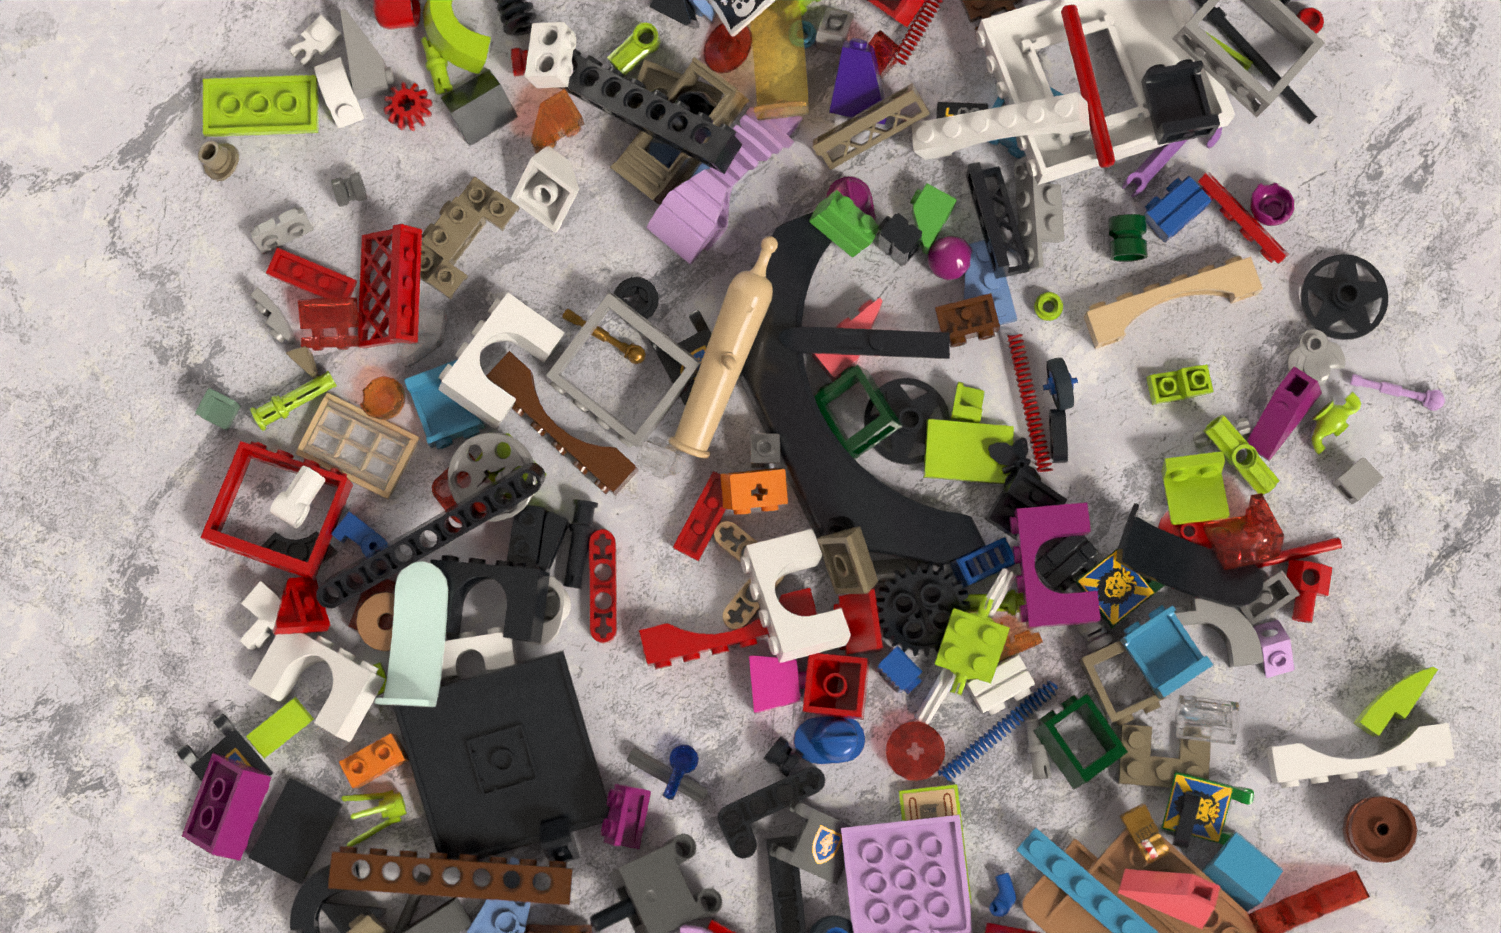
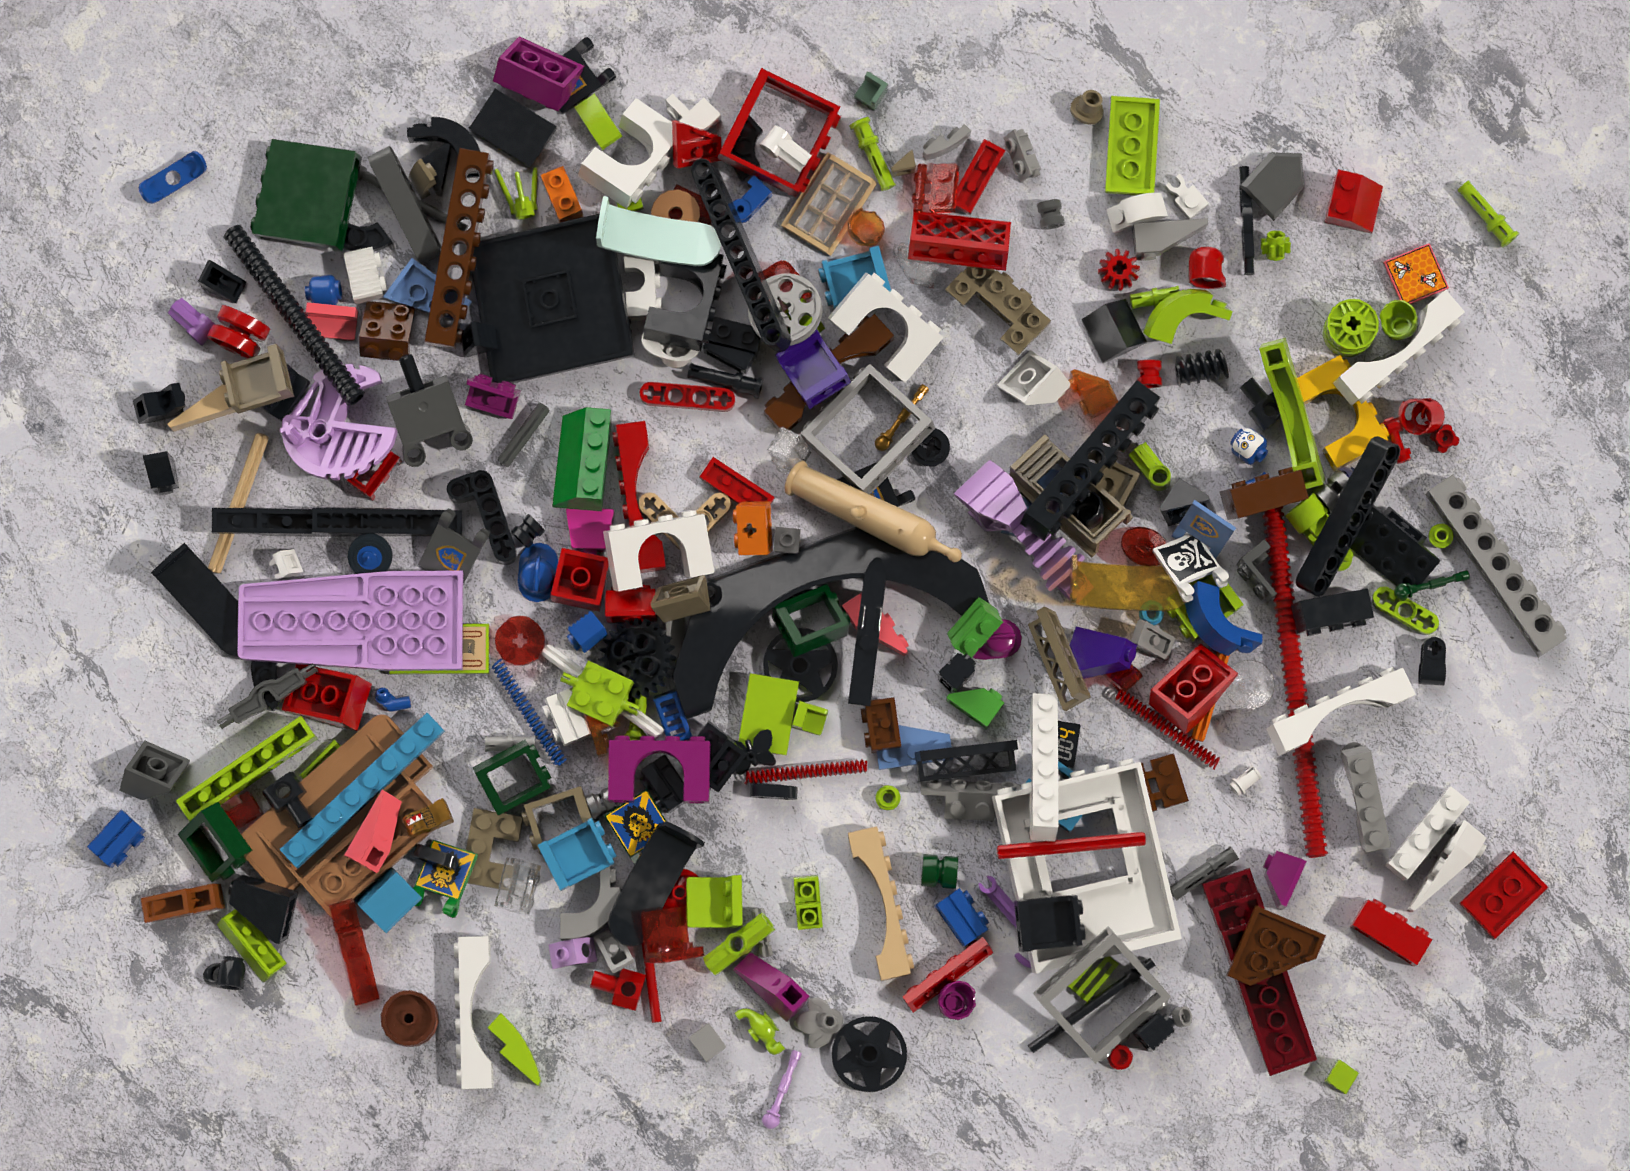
camera: 90 degrees right, 0 degrees up
(545, 54) = (1146, 385): white brick -> none
(561, 437) = (813, 369): none -> dark purple panel
(682, 760) = (533, 448): clear blue plate -> none
(693, 699) = (582, 459): none -> green slope
(949, 257) = (939, 717): magenta hair -> none
(1060, 383) = (817, 796): black wheel -> none

